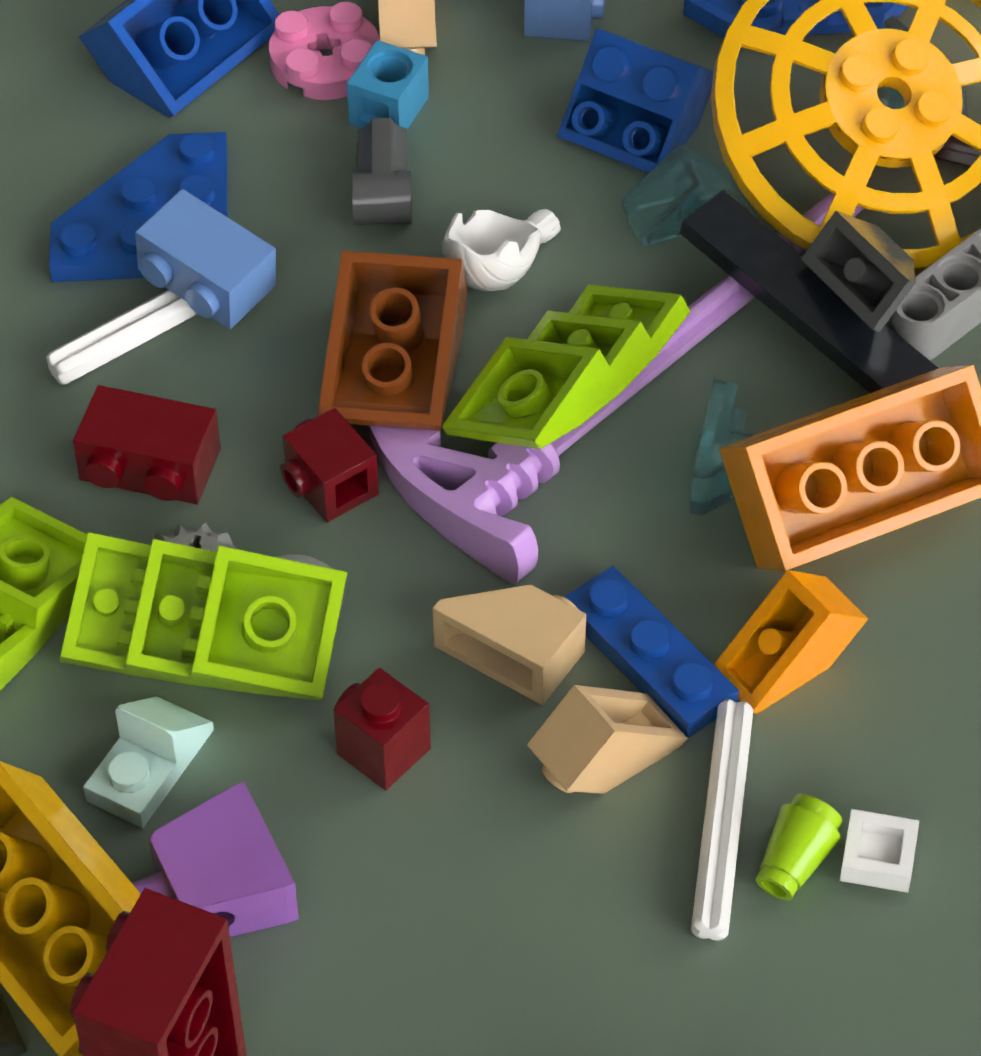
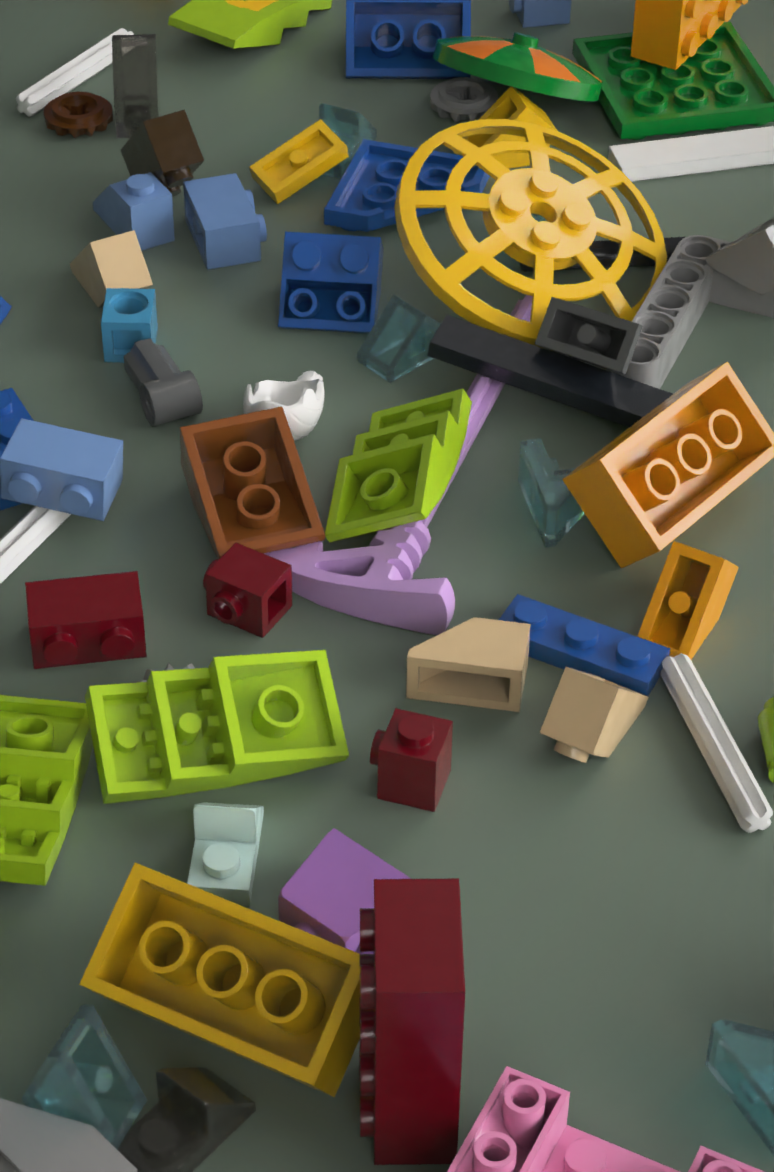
camera: 25 degrees left, 10 degrees down
(303, 33) = (55, 315): bright pink plate -> none

